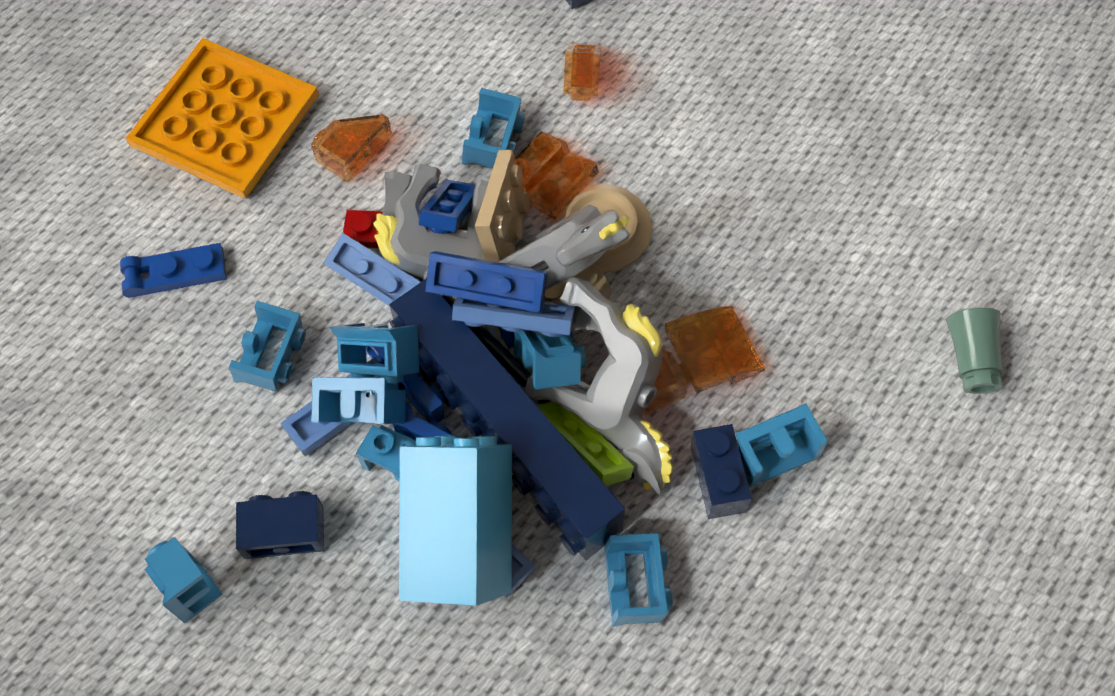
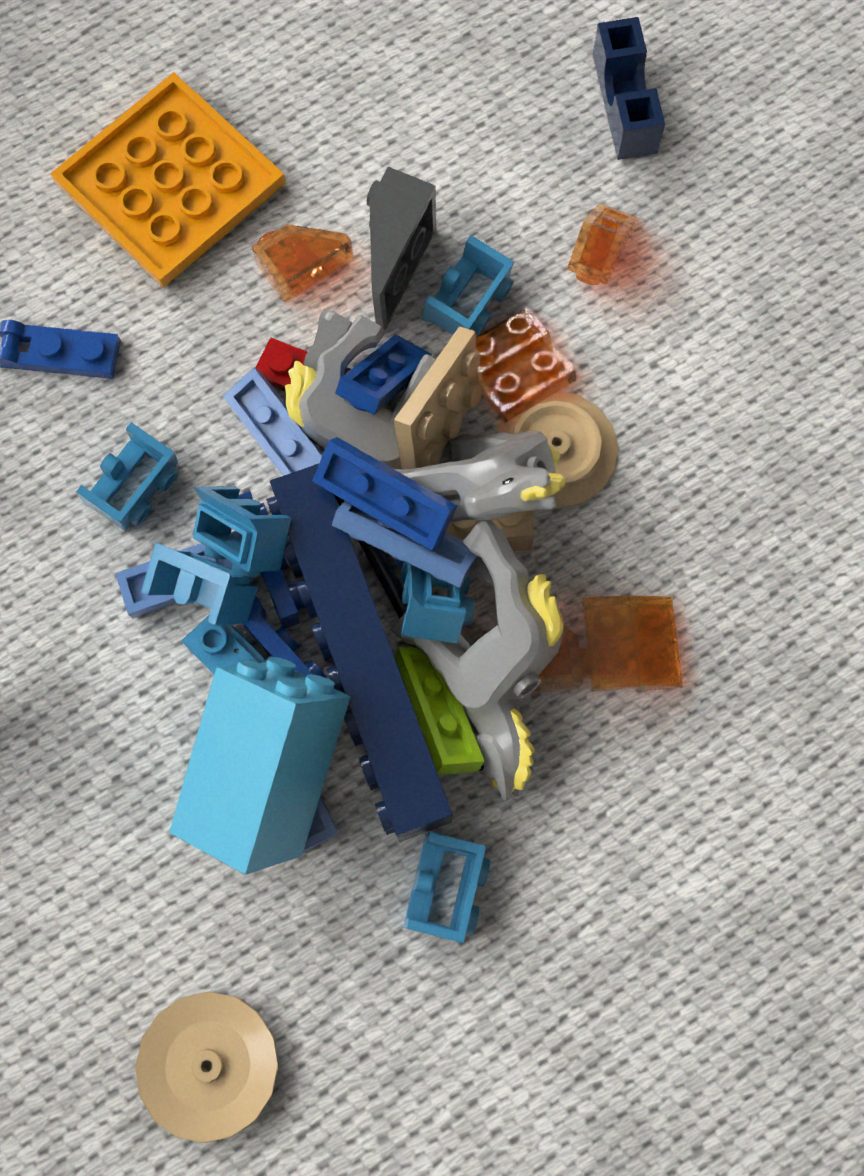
camera: 20 degrees right, 10 degrees up
(279, 525) = (78, 692): dark blue brick -> none
(424, 100) = (400, 232): none -> dark grey slope
(720, 471) = (584, 794): dark blue brick -> none
(795, 442) = (663, 787): dark azure window -> none

